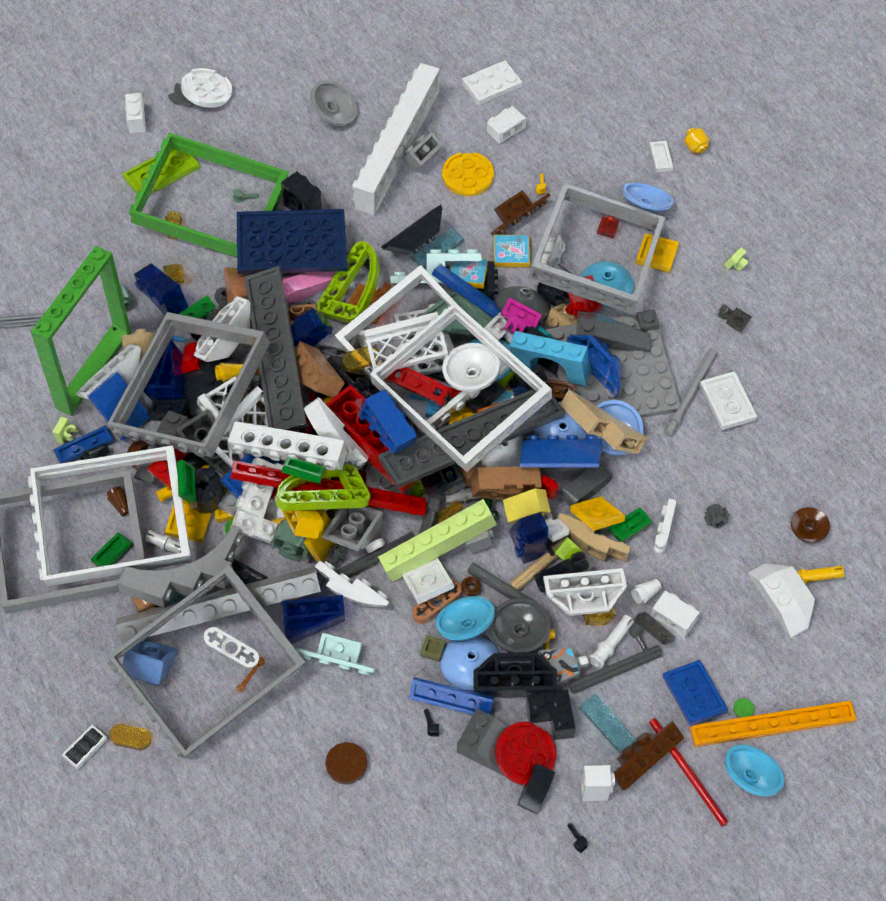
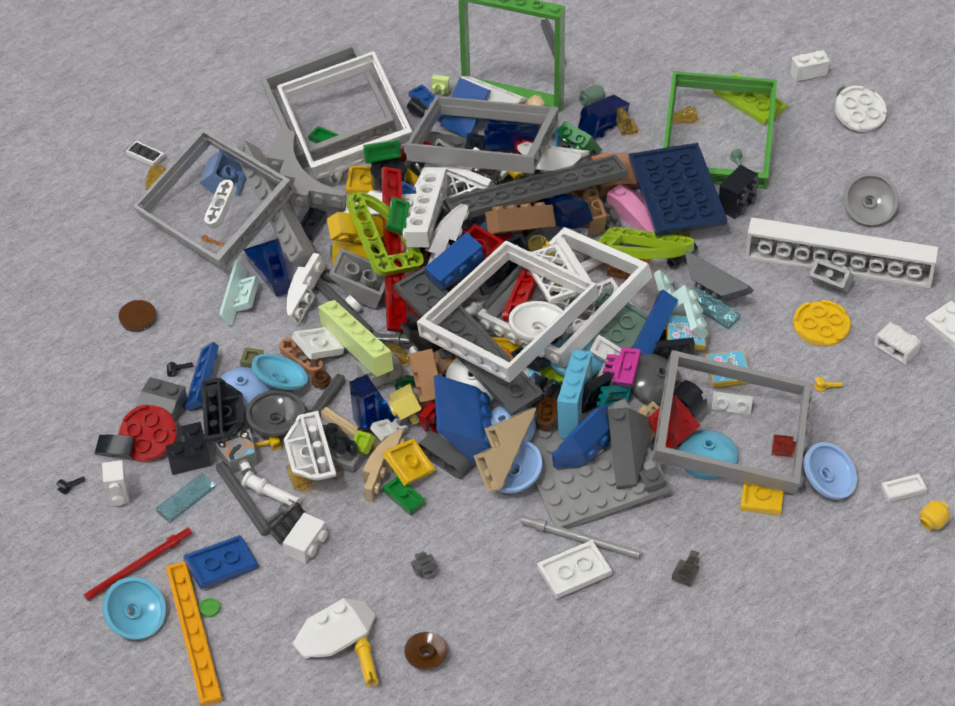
camera: 85 degrees right, 10 degrees down
(514, 208) = (778, 360): reddish brown bracket -> none
(645, 591) = (329, 513): white cone -> none
(645, 753) = (149, 522): reddish brown bracket -> none
(664, 527) = (406, 523): white hinge -> none
(737, 260) = (769, 564): yellowish green tile -> none

